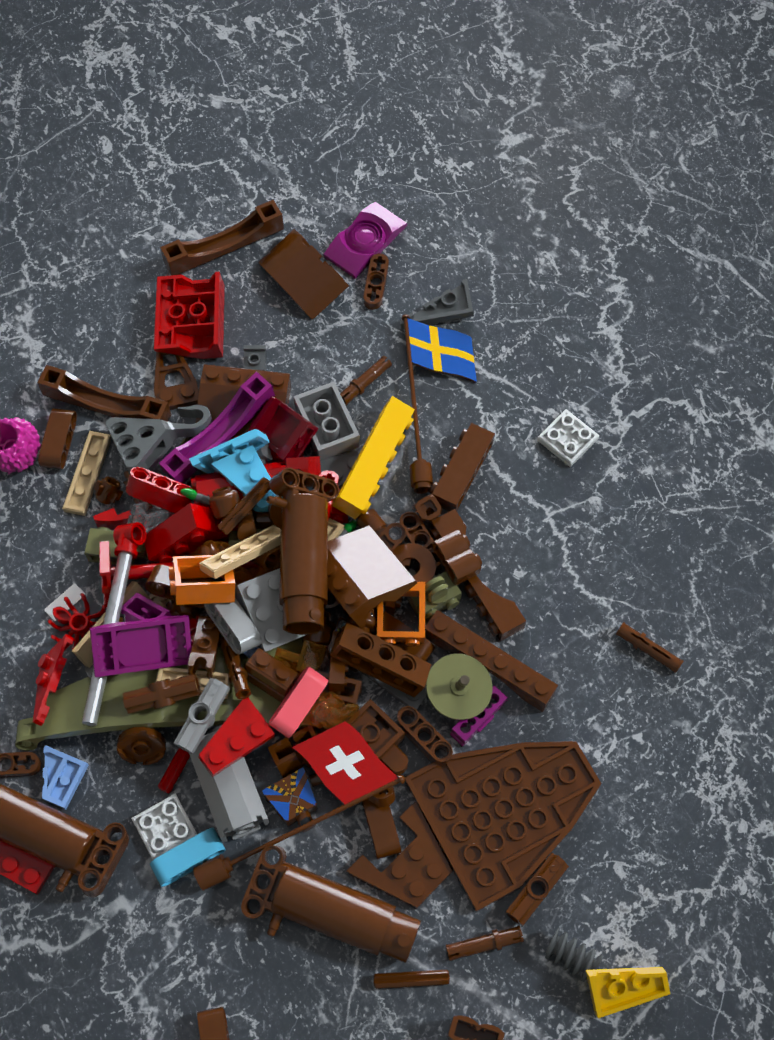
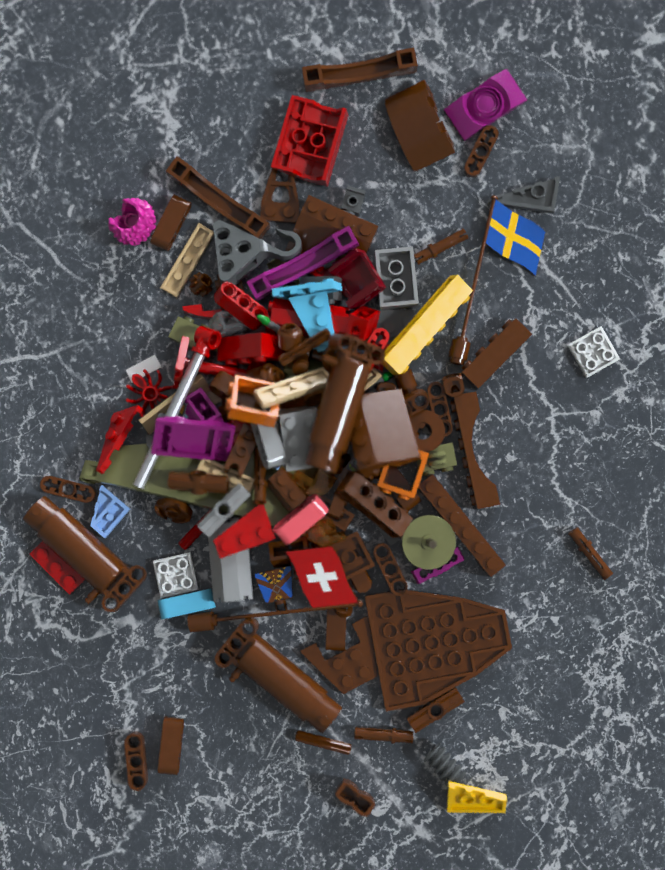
camera: 25 degrees right, 20 degrees up
(457, 557) = (463, 436): reddish brown brick -> none

